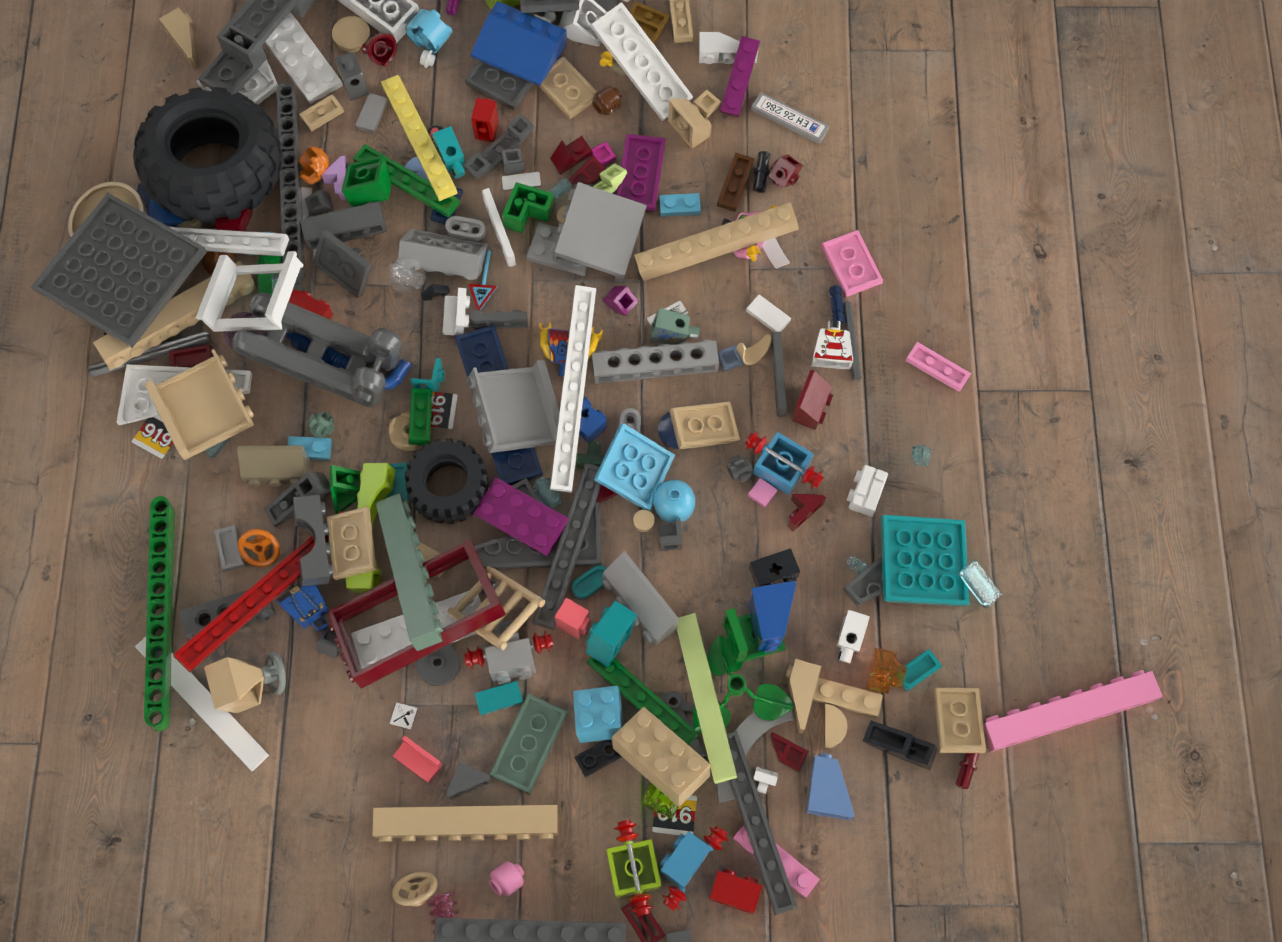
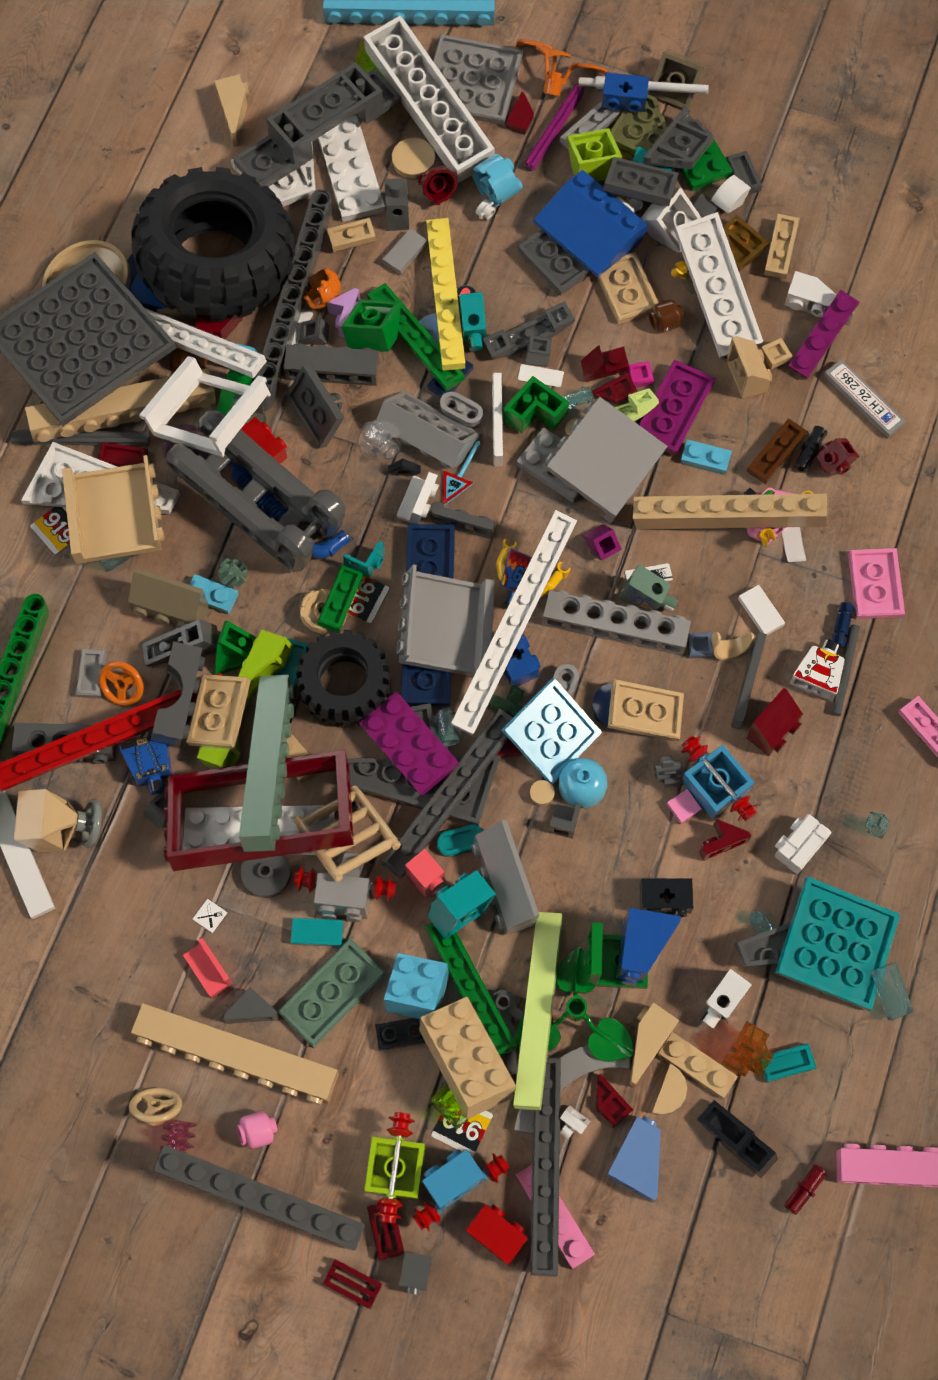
camera: 20 degrees right, 0 degrees up
(485, 119) = (523, 296): red brick -> none
(959, 720) = (813, 1135): tan tile -> none

